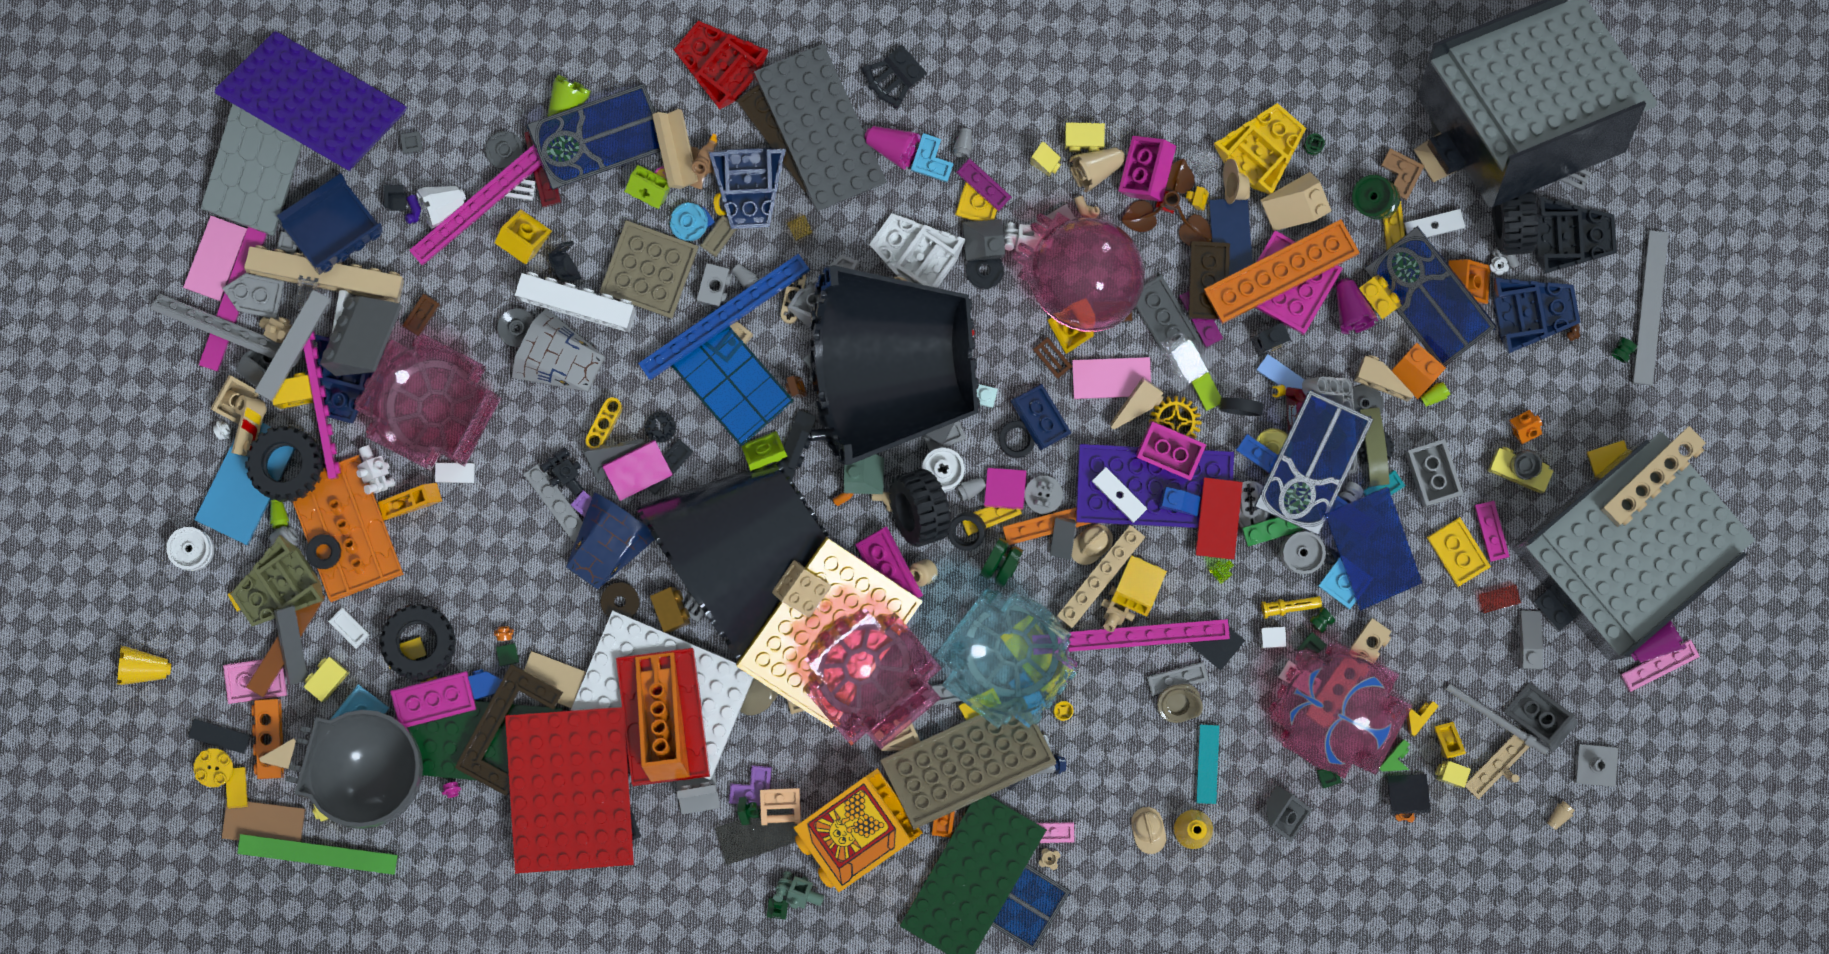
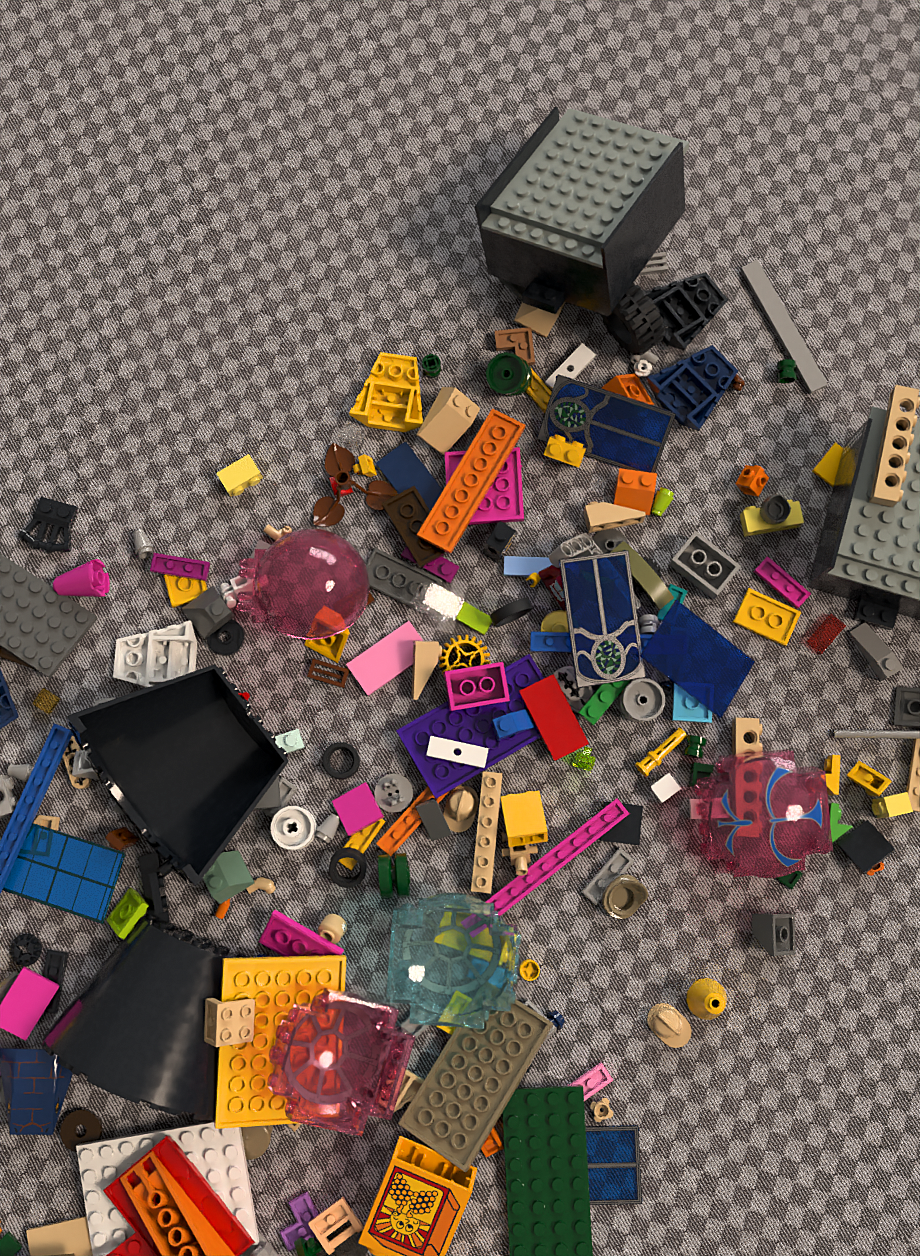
camera: 30 degrees left, 5 degrees down
(670, 609) = (128, 1114): pearl gold brick -> none
(919, 507) = (292, 875): black tyre -> none
(926, 161) = (121, 579): medium azure plate -> none
(1041, 417) = (349, 728): dark blue tile -> none
(1045, 159) = (218, 513): light yellow slope -> none
(1095, 166) = (264, 493): tan cone -> none
(1147, 168) = (307, 467): dark pink brick -> none
(1207, 764) = (681, 933): teal tile -> none
(1235, 183) = (387, 434): tan piece -> none
(1353, 308) = (549, 474): magenta cone -> none

